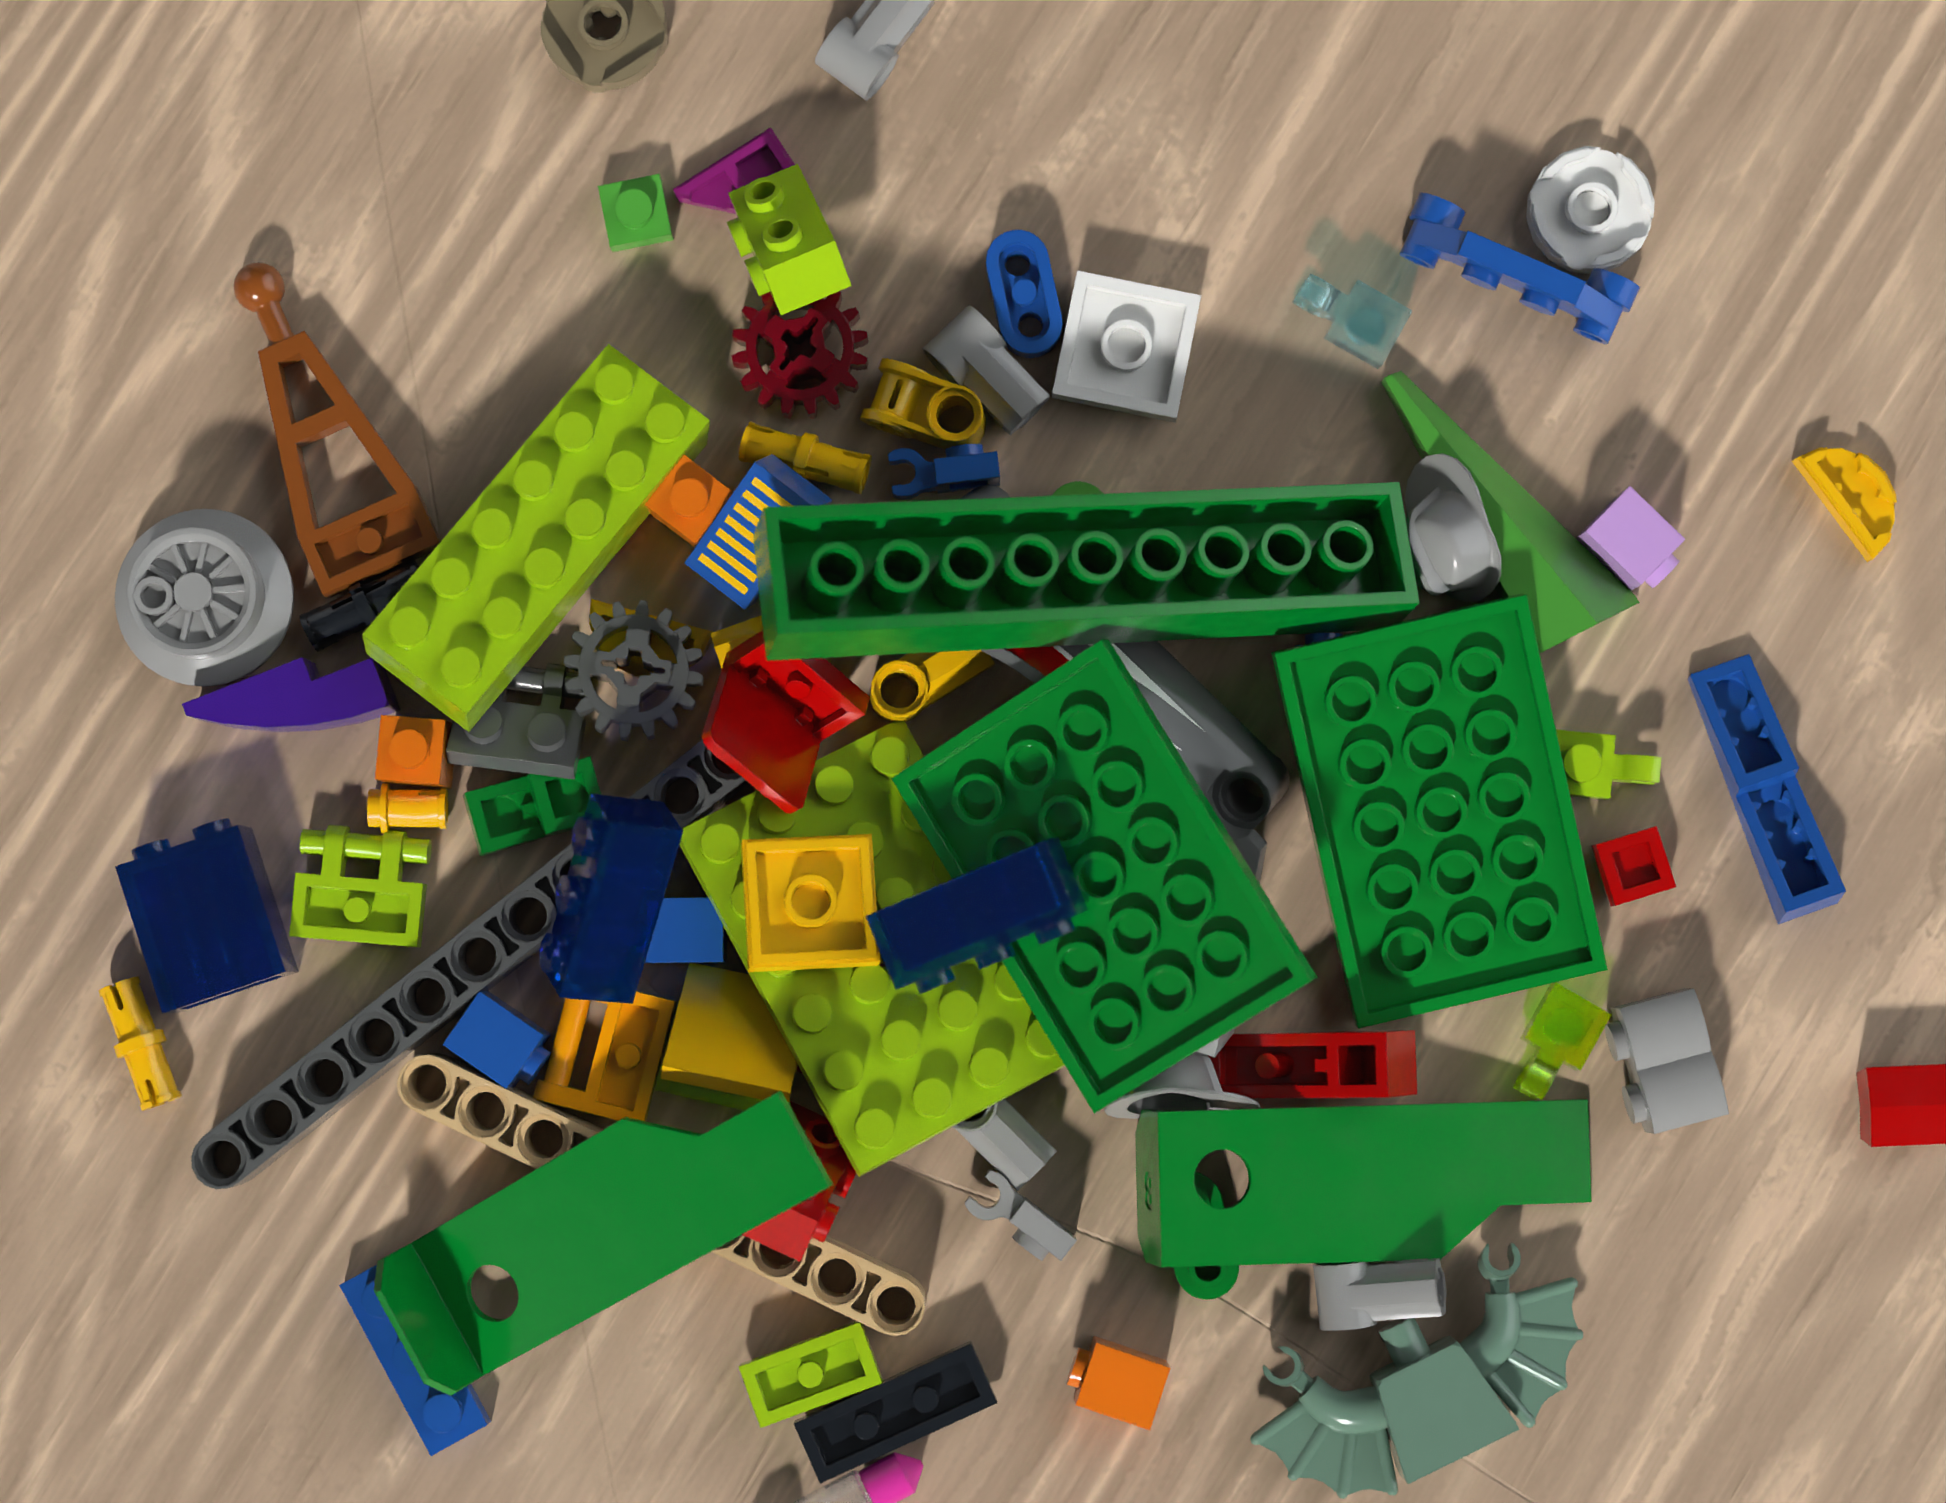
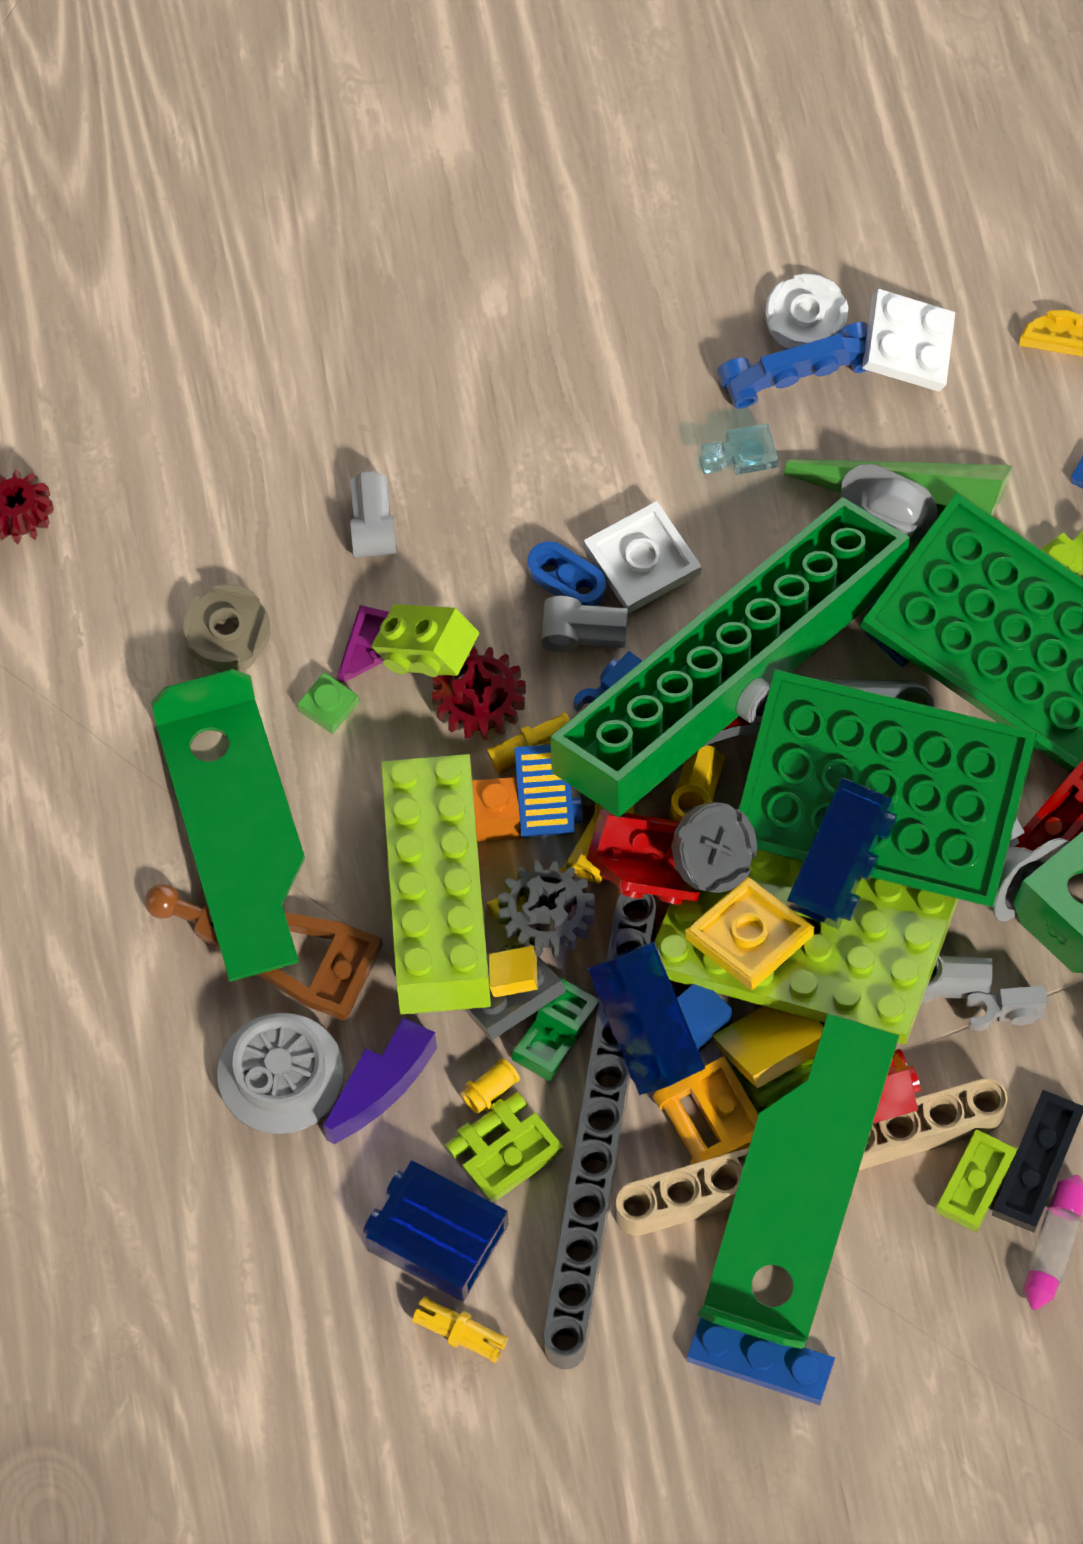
camera: 40 degrees left, 20 degrees down
(355, 608) = (369, 1006): black pin -> none
(407, 268) = (233, 818): none -> green piece
(414, 752) = (468, 1048): orange brick -> none
(499, 1041) = (651, 1152): blue brick -> none
(528, 713) = (513, 971): none -> yellow tile
(854, 777) = (714, 847): none -> dark grey tile
(920, 406) = (566, 668): yellow piece -> none
(1054, 648) = (753, 700): none -> light grey tile
(1632, 540) = (980, 437): lavender brick -> none
(1667, 349) = (908, 340): none -> white plate

